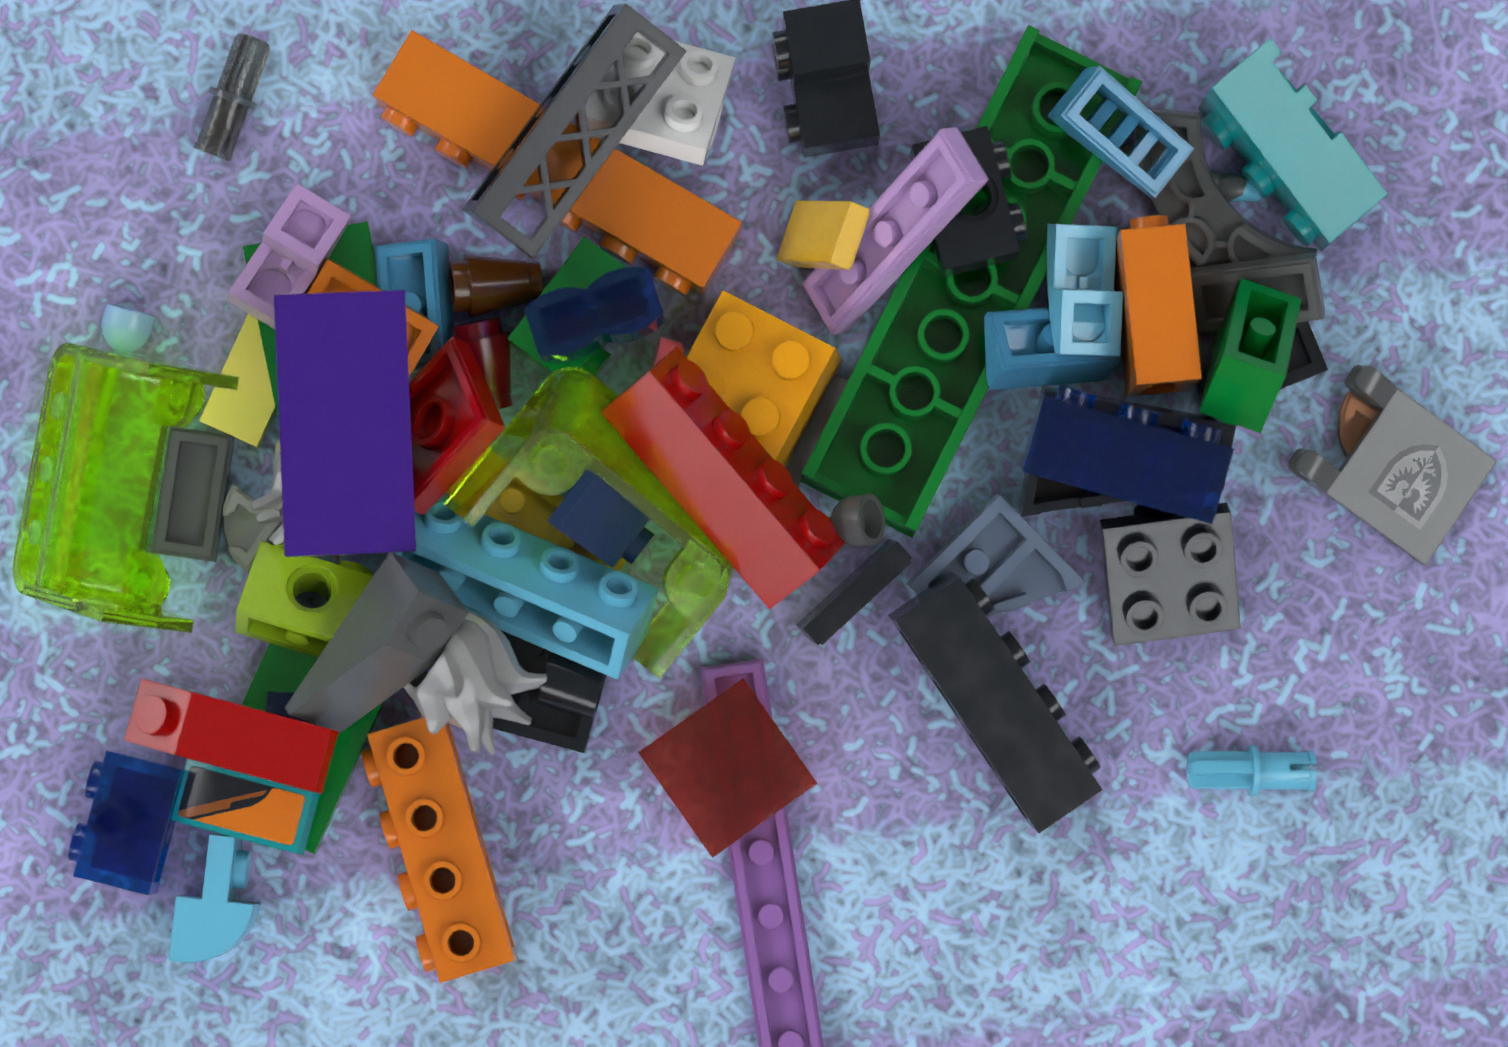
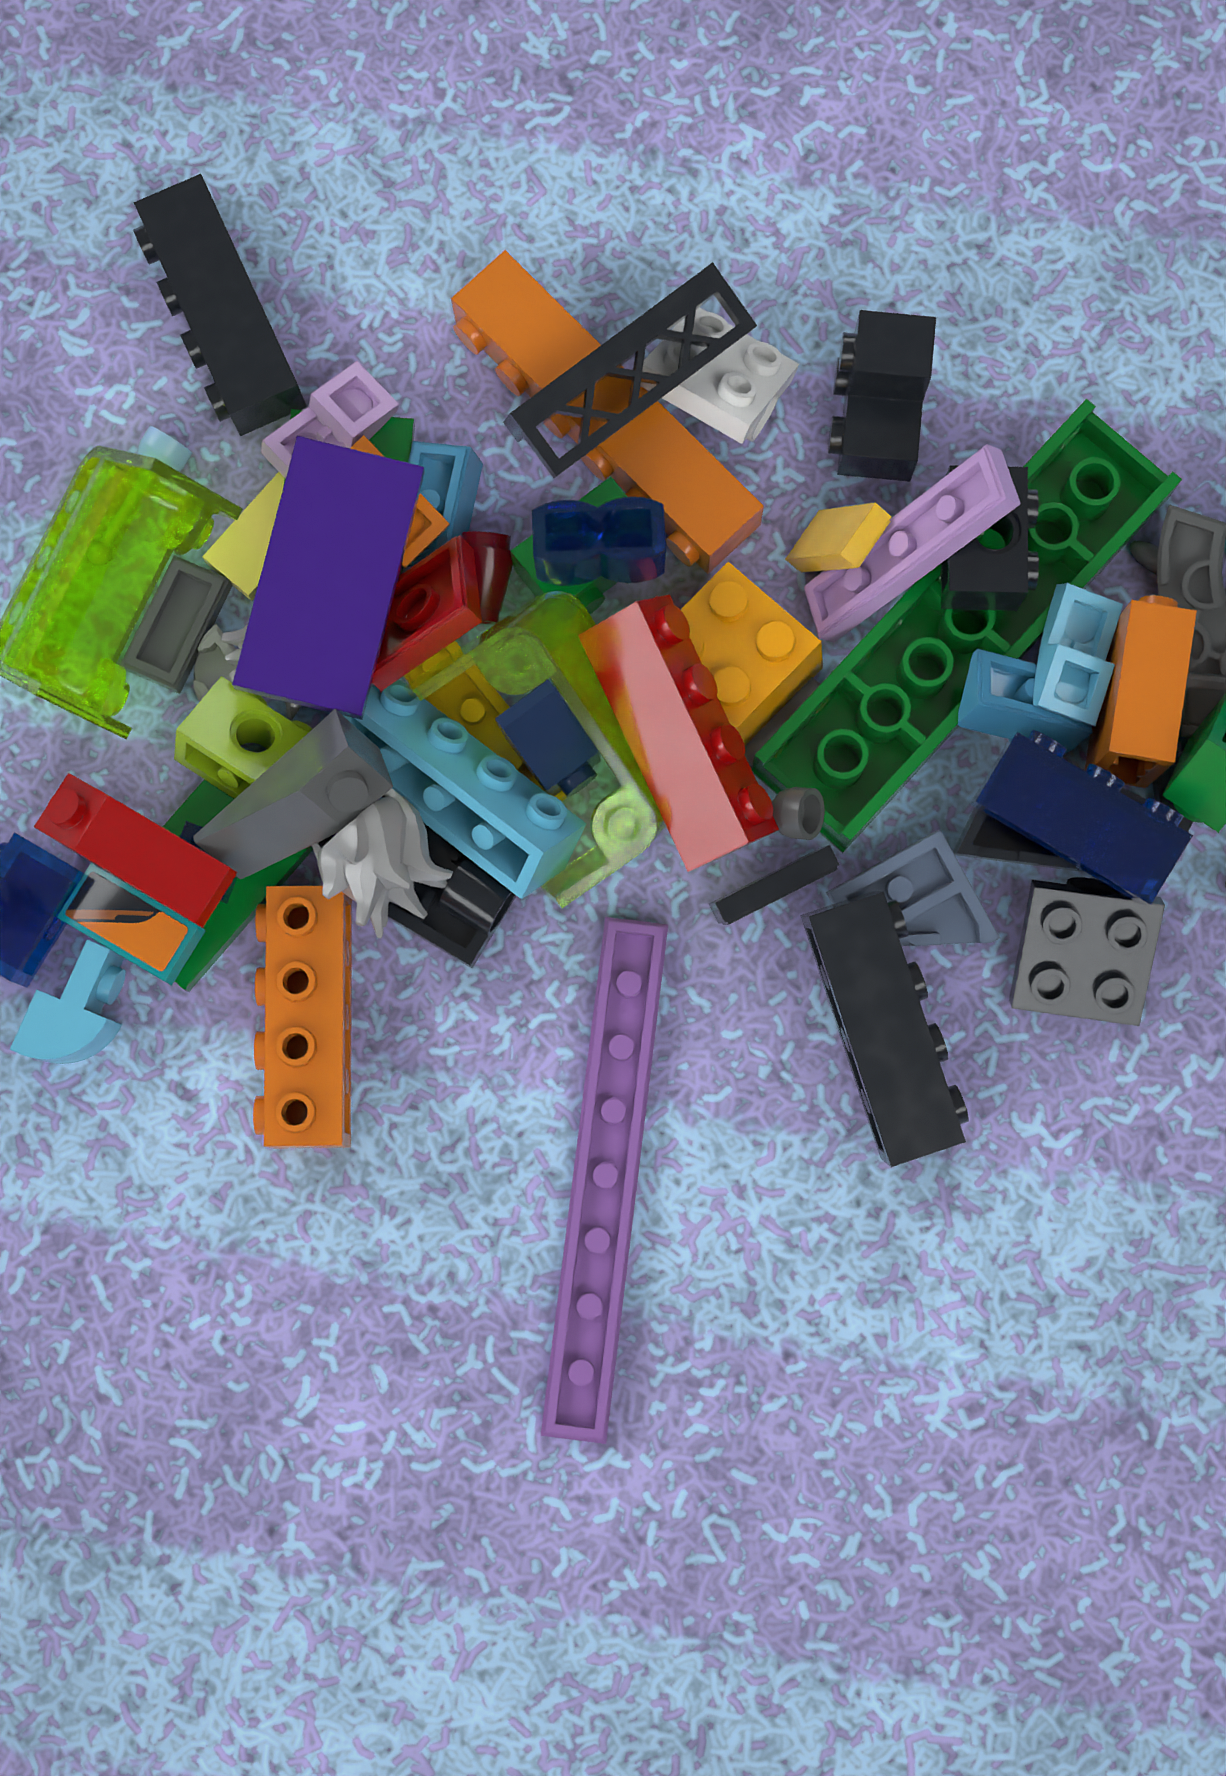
camera: 20 degrees right, 5 degrees down
(138, 159) = (219, 305): none -> black brick
(233, 96) = (324, 275): clear smoke axle -> none
(492, 284) = (505, 503): reddish brown cone -> none
(727, 767) = (604, 1018): clear red tile -> none
(1135, 113) = (1170, 503): dark azure slope -> none
(1251, 770) = (1115, 1167): medium azure axle -> none

